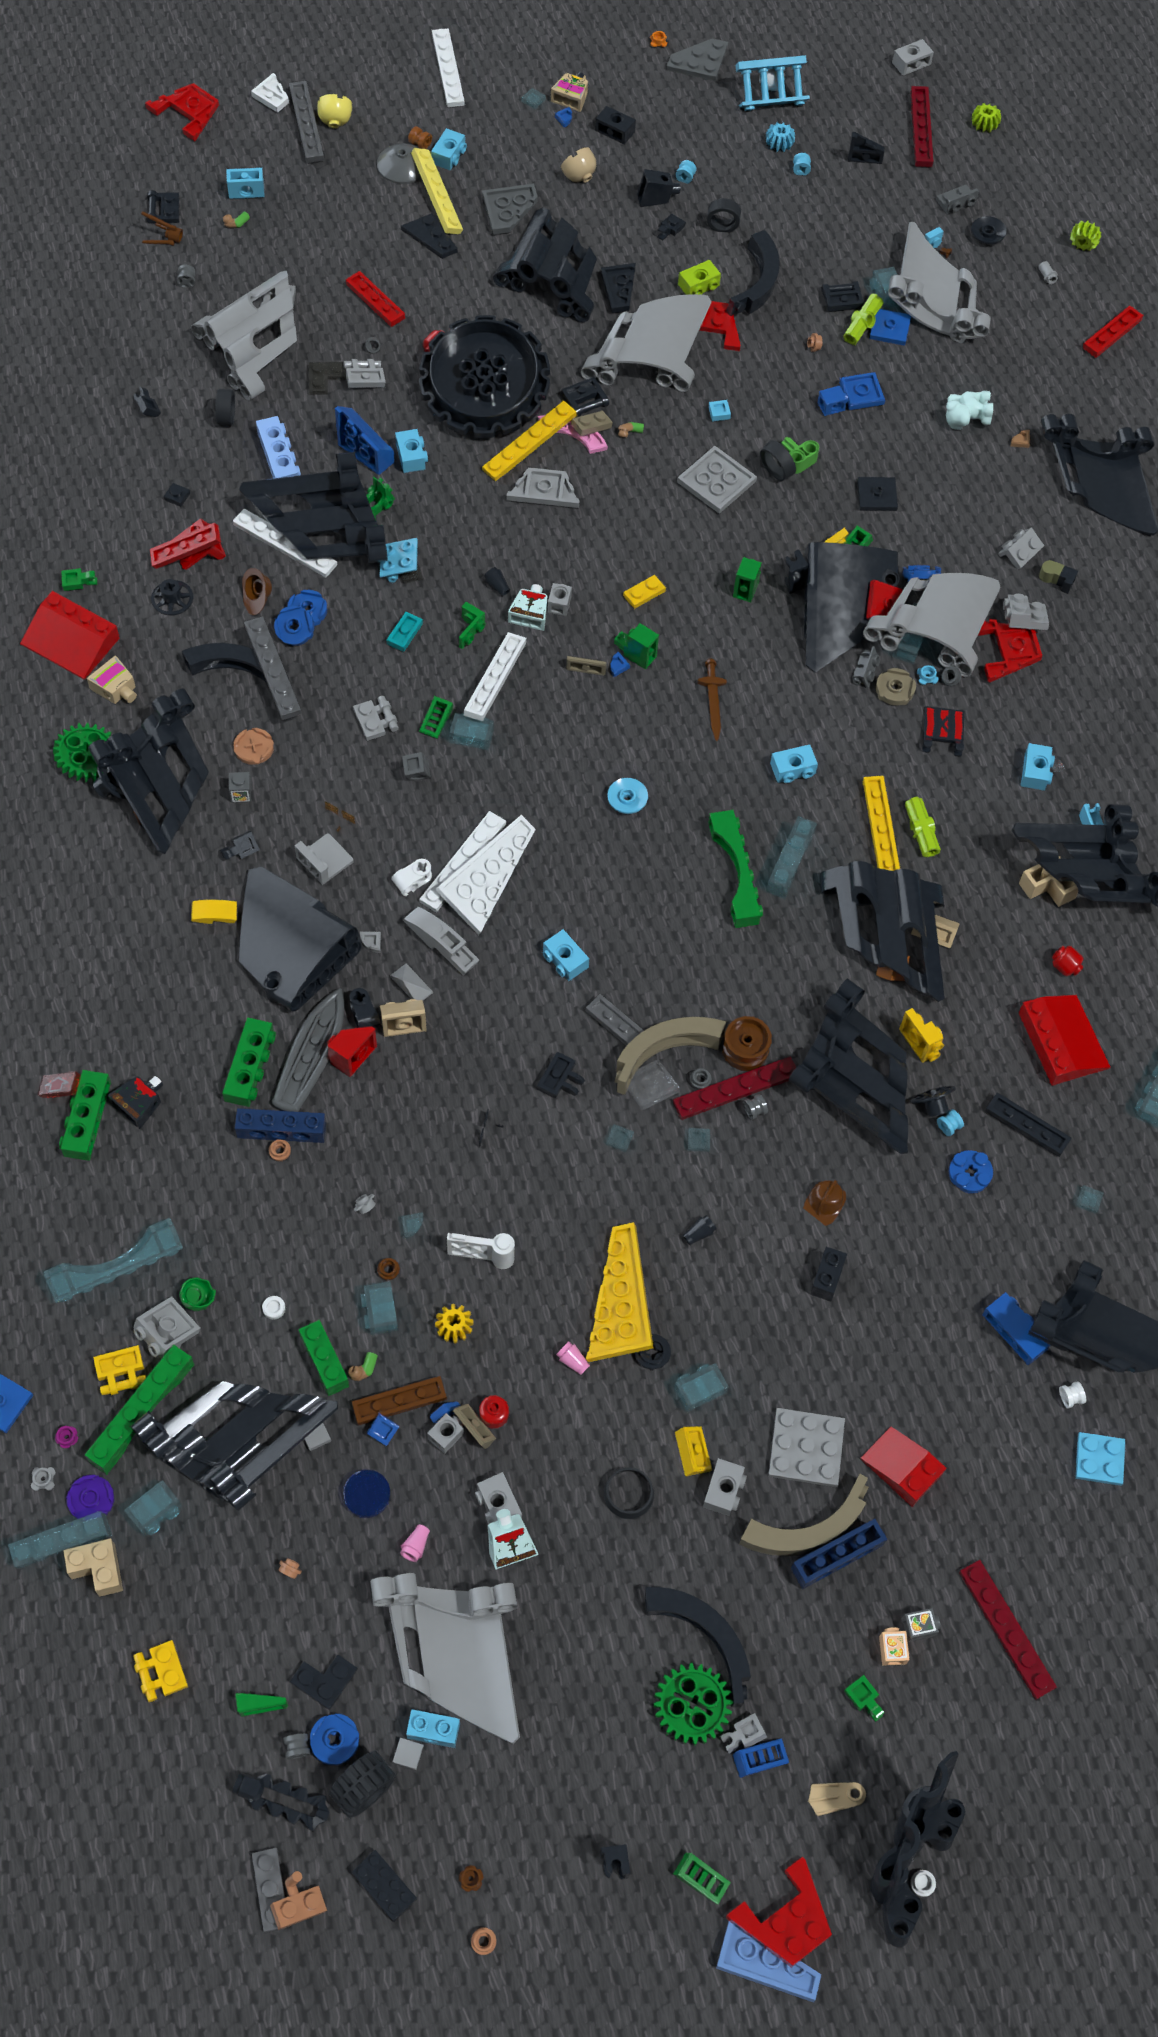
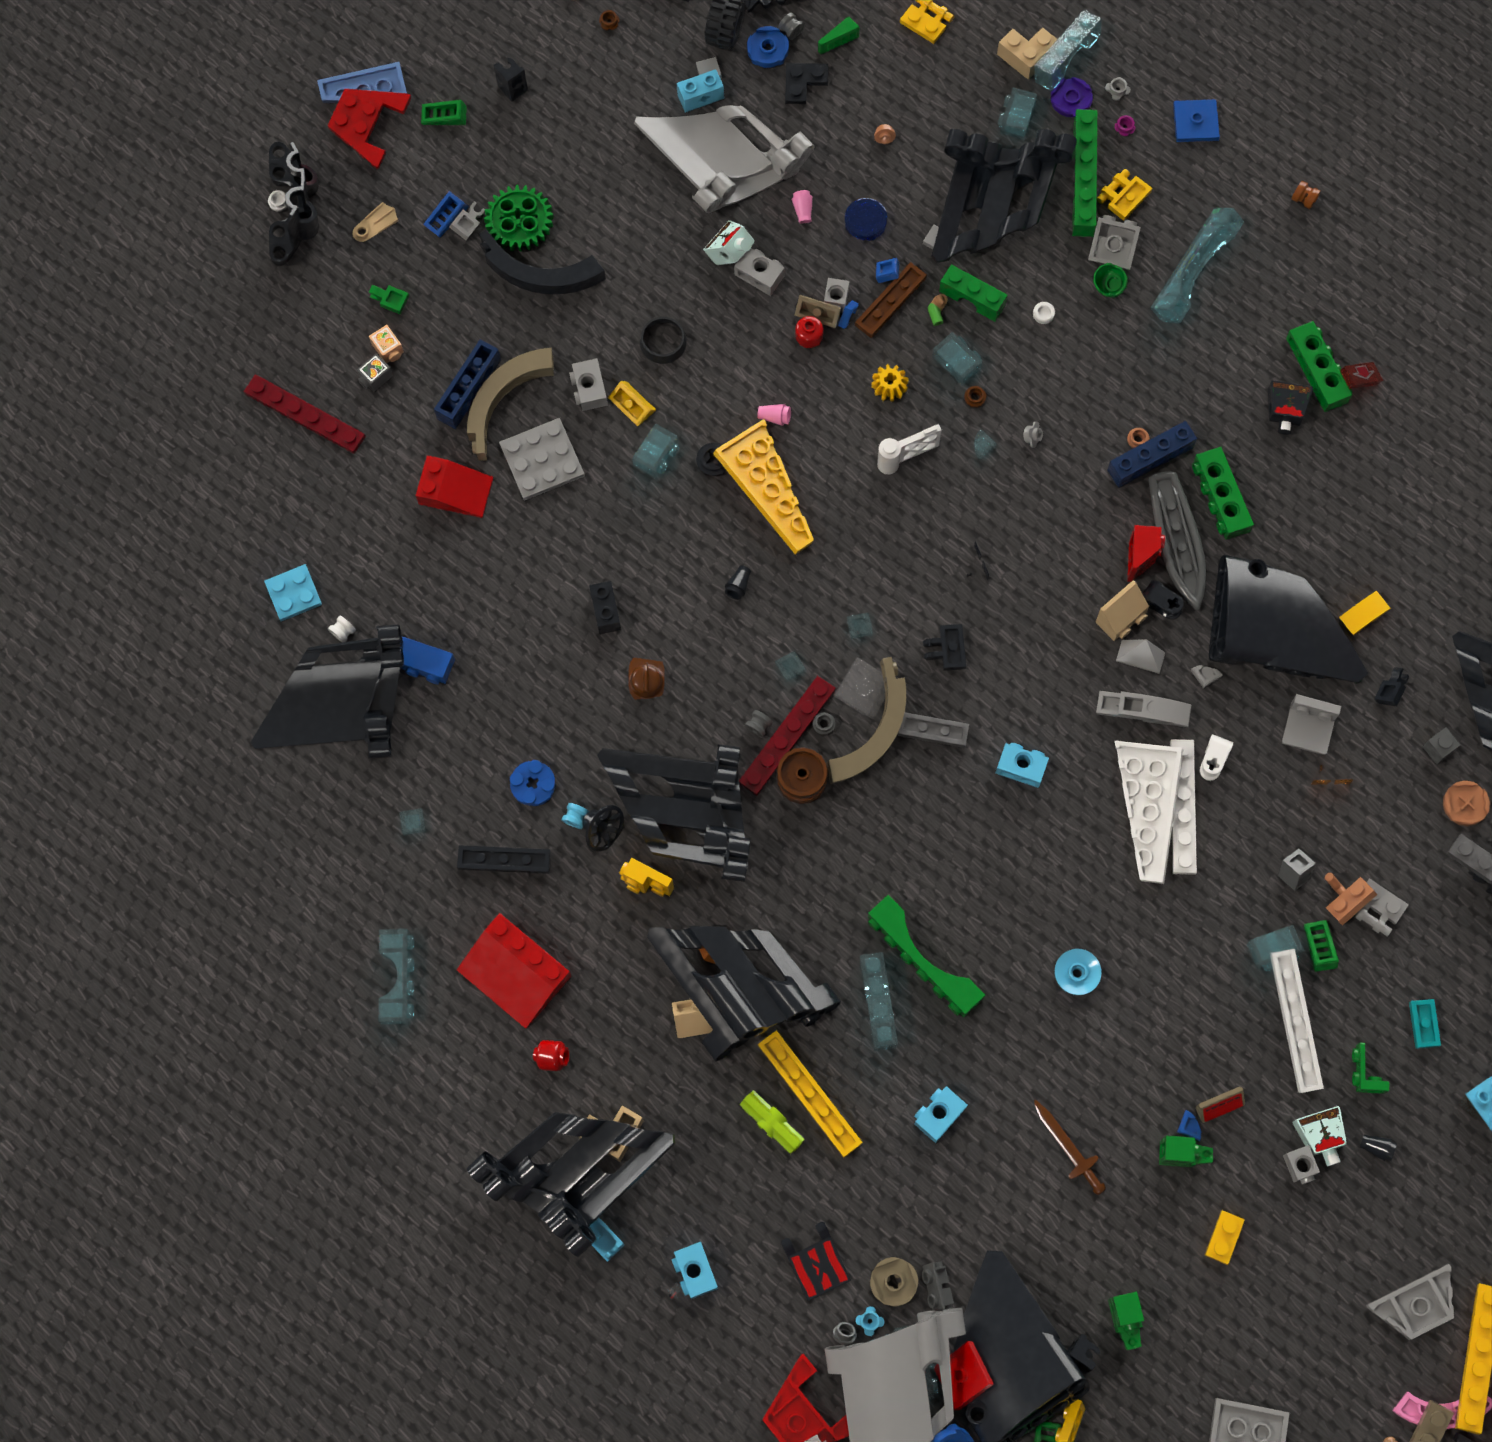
camera: 155 degrees right, 10 degrees up
(393, 728) = (1350, 899): none -> nougat plate

